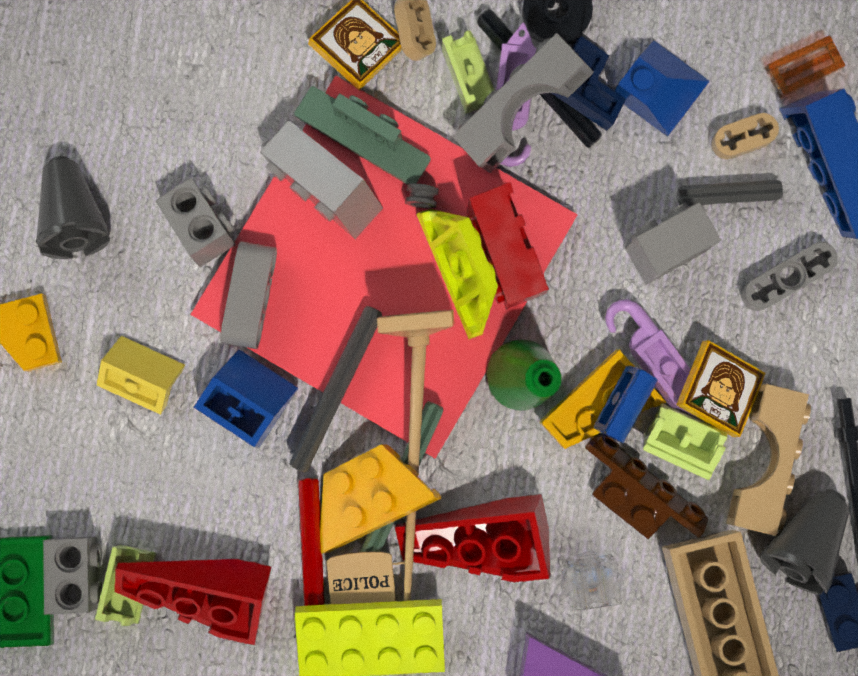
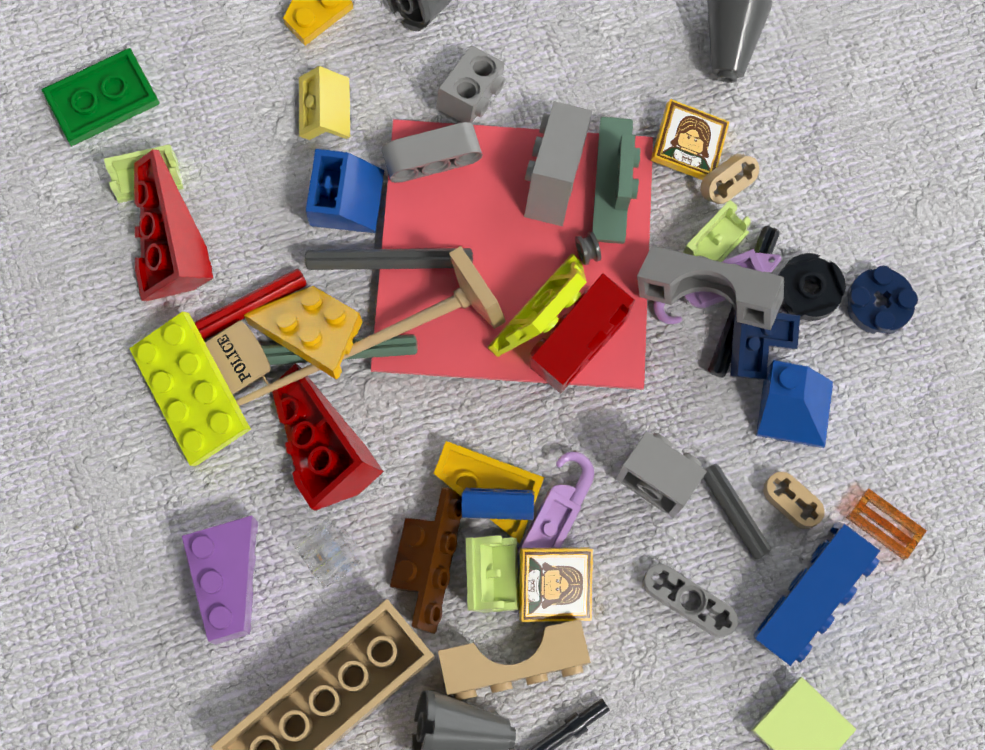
camera: 60 degrees right, 10 degrees down
(60, 574) = (130, 121): light grey brick -> none
(522, 375) = (476, 425): green cone -> none

